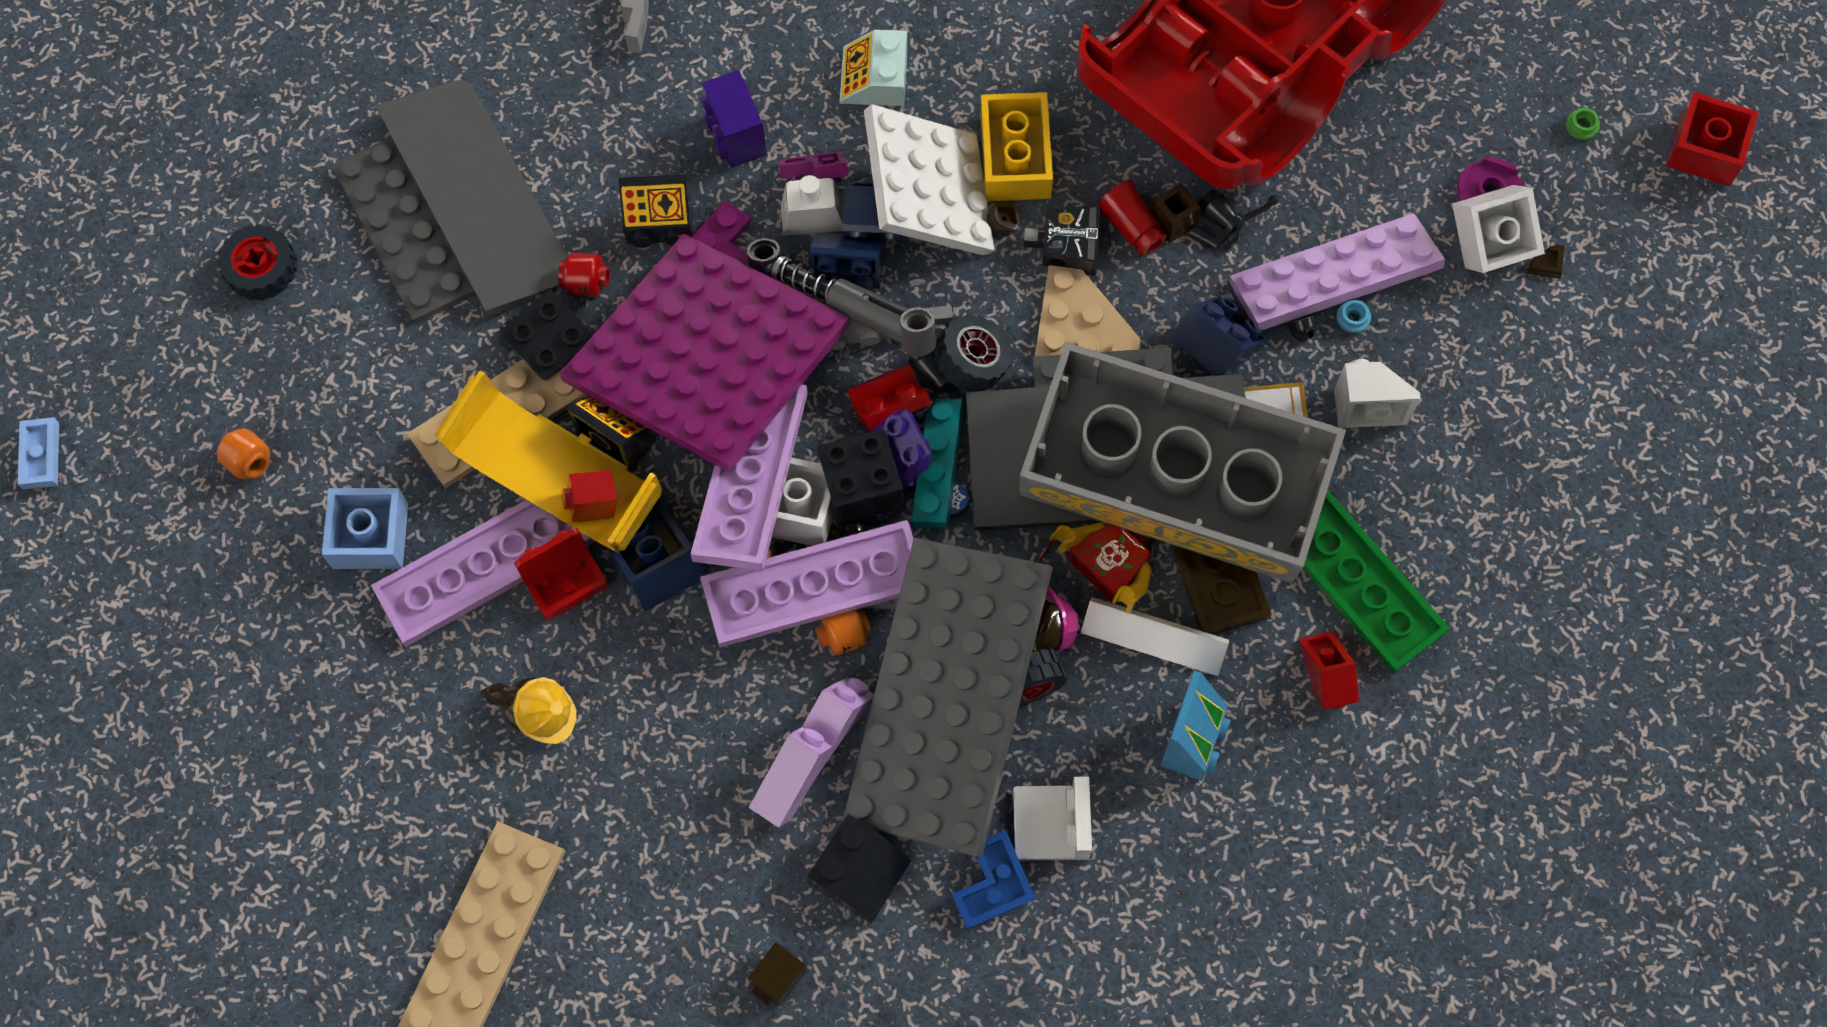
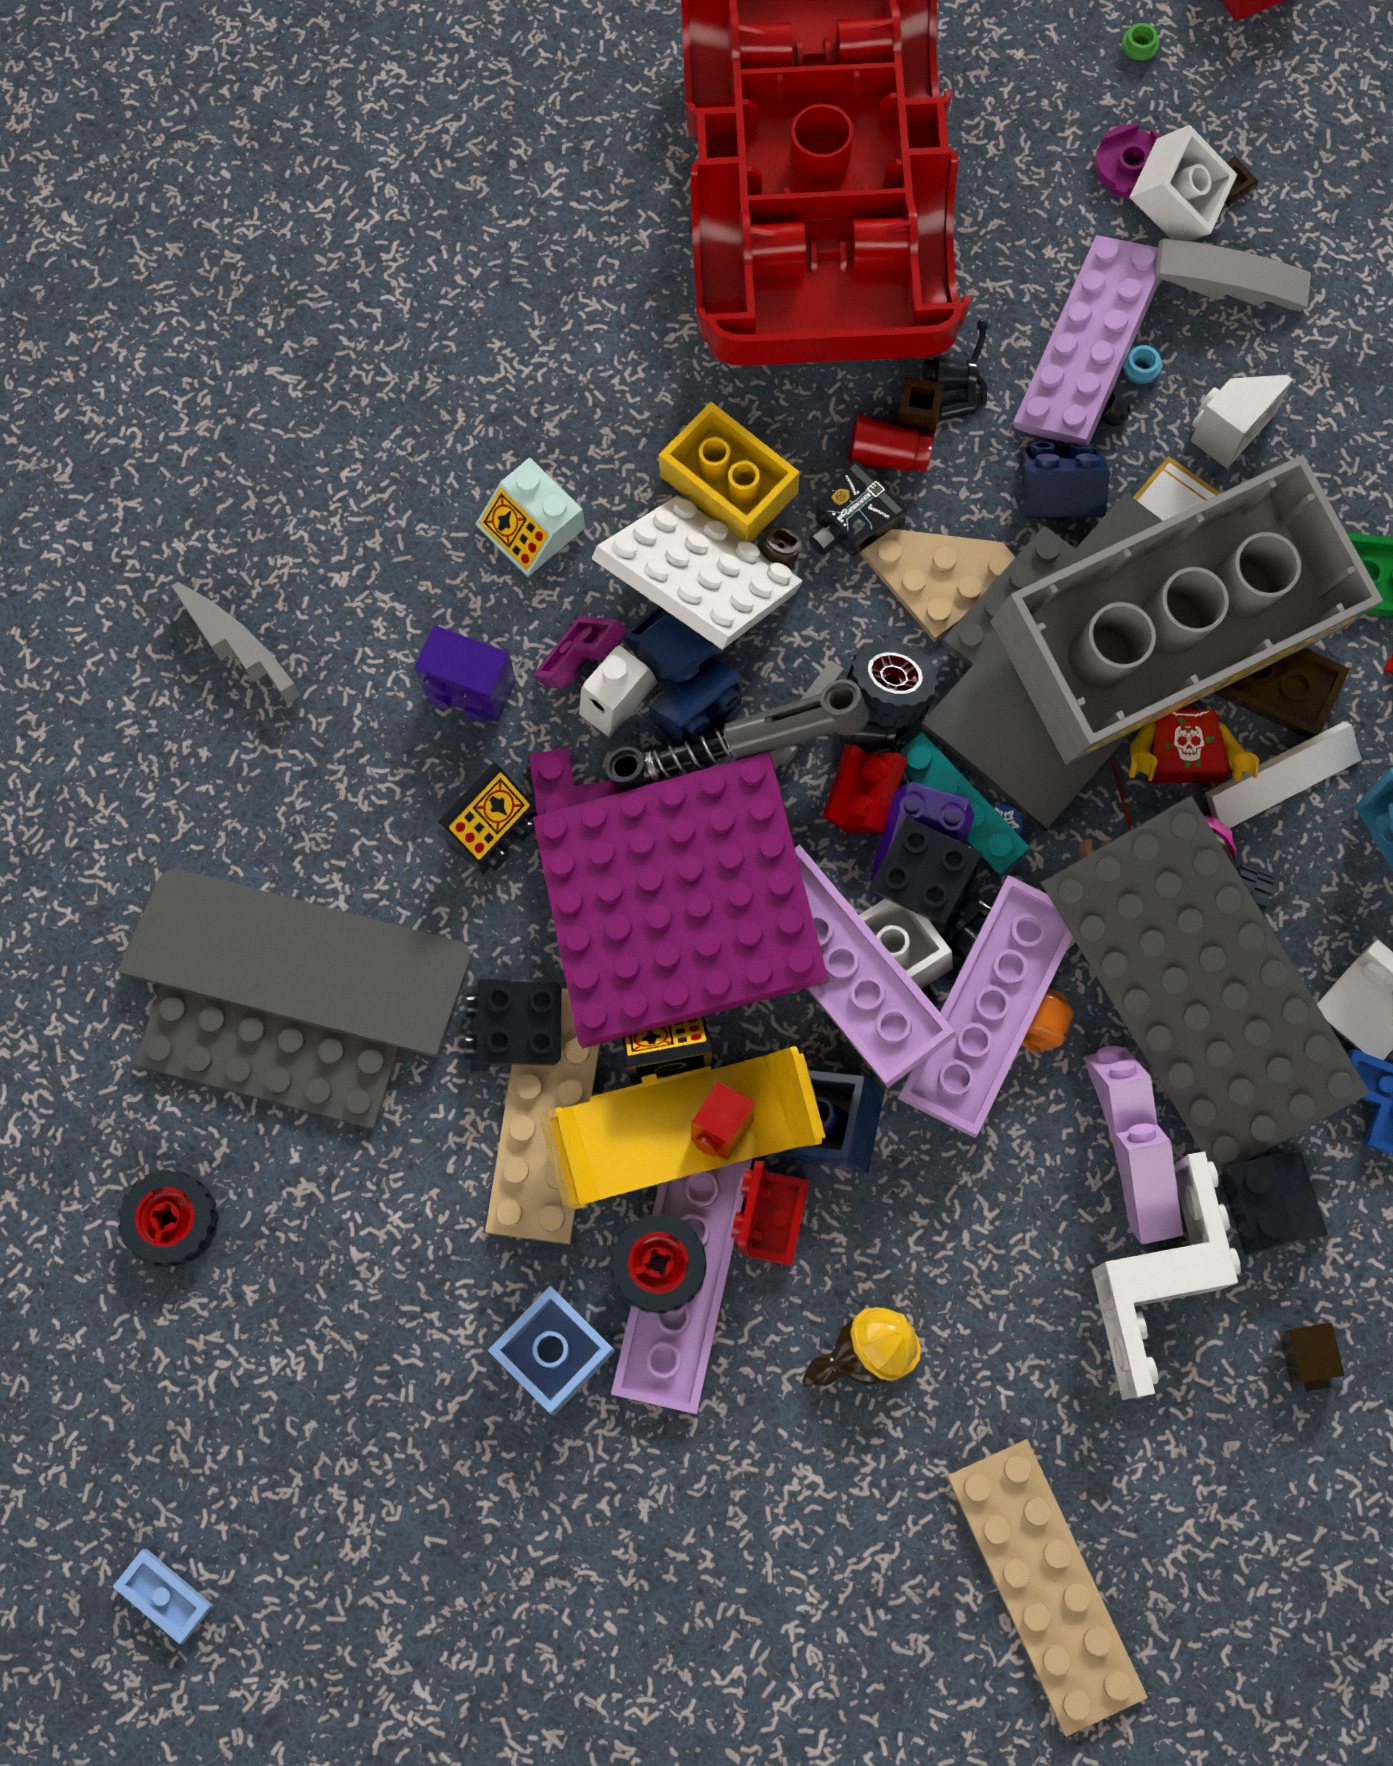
camera: 45 degrees left, 5 degrees up
(243, 454) = (360, 1399): orange head -> none
(478, 556) = (647, 1287): none -> black wheel
(583, 274) = (483, 938): red head -> none
(737, 836) = (1166, 1274): none -> white bracket
(1474, 312) = (1232, 272): none -> light grey slope

